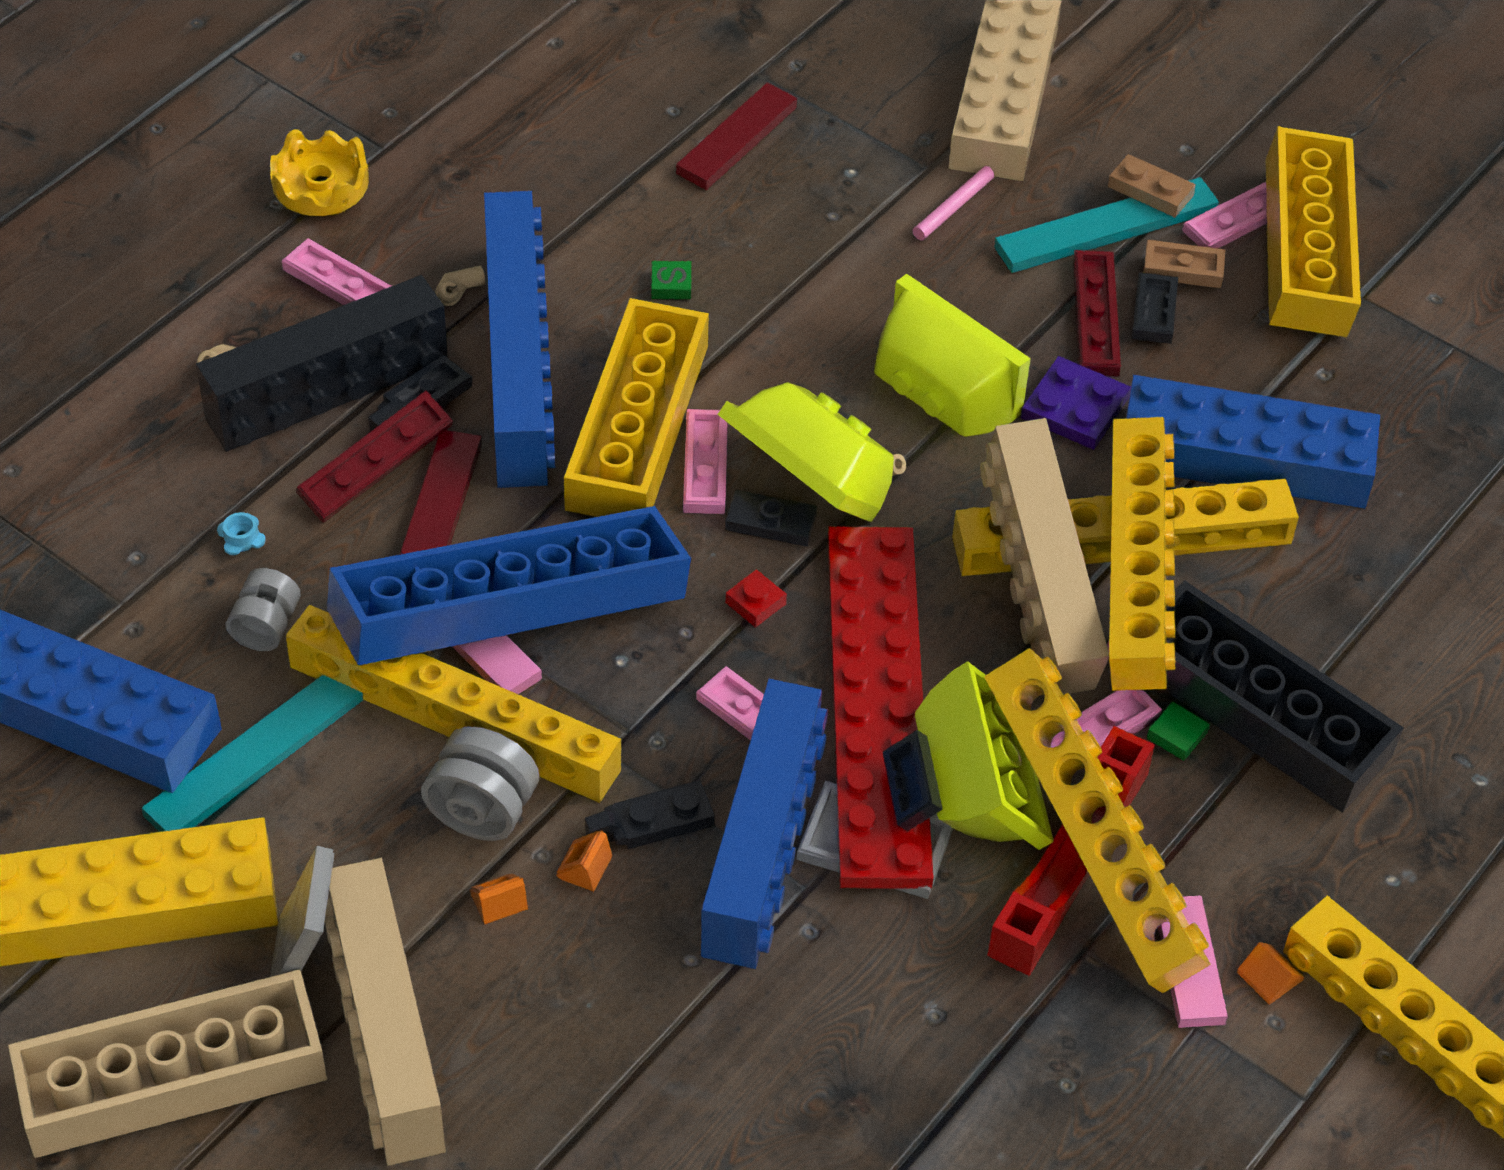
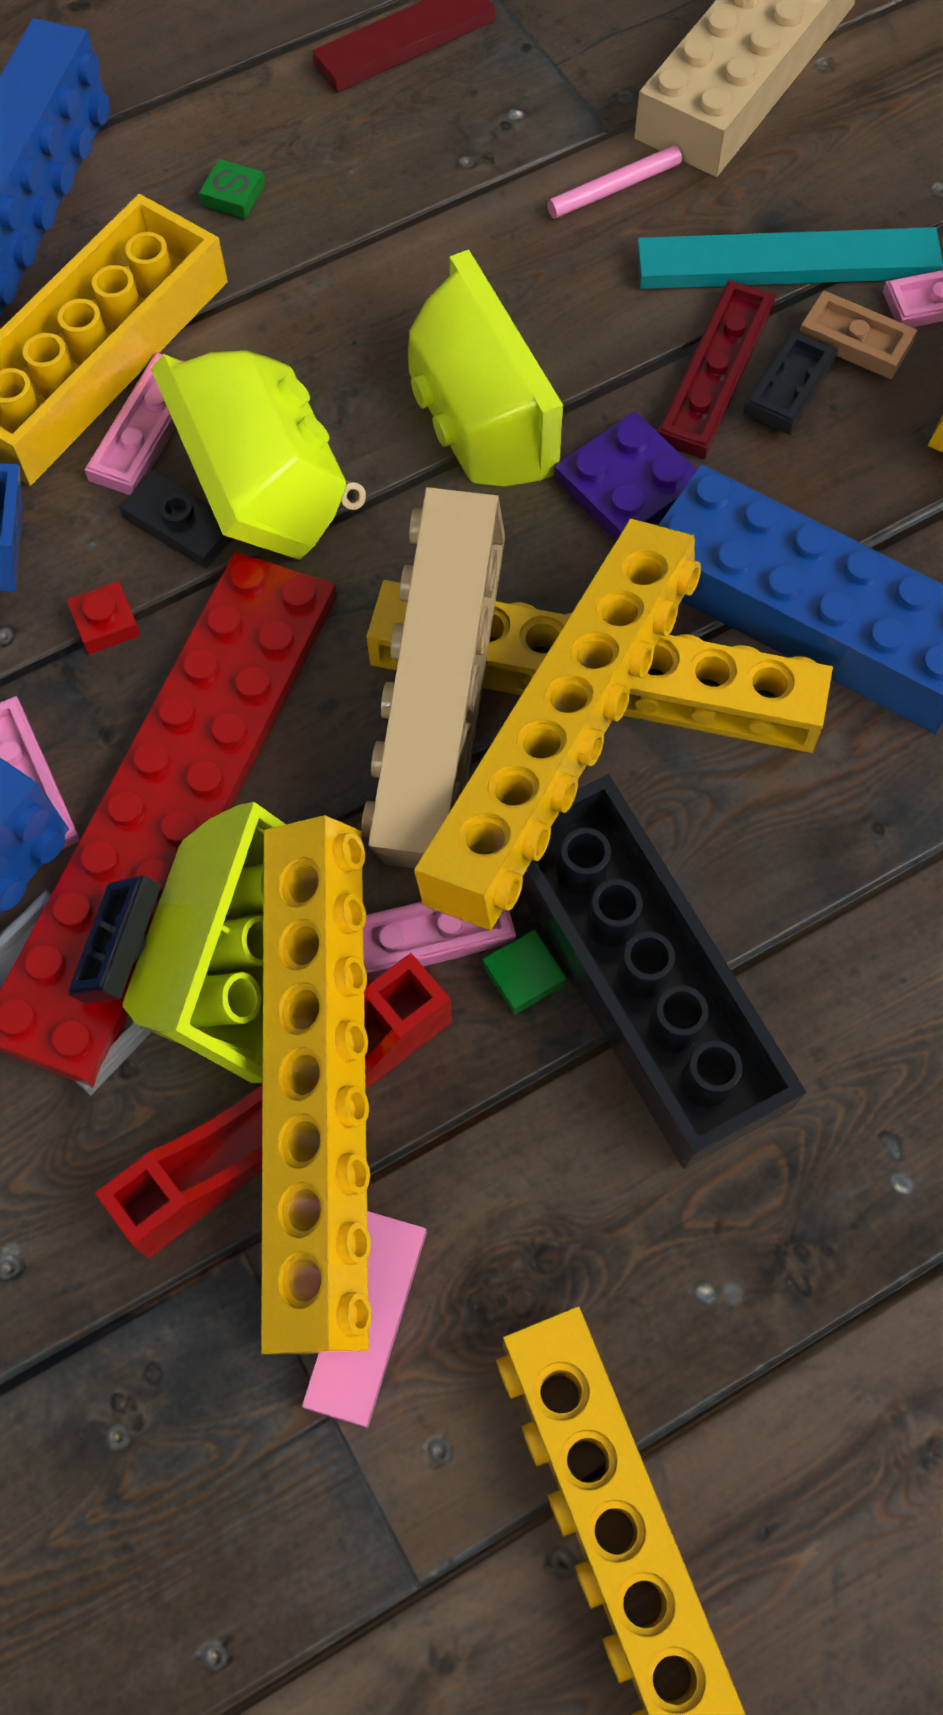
camera: 25 degrees right, 15 degrees up
(1151, 185) = (865, 221): medium nougat plate -> none
(1269, 972) = (464, 1376): orange slope -> none

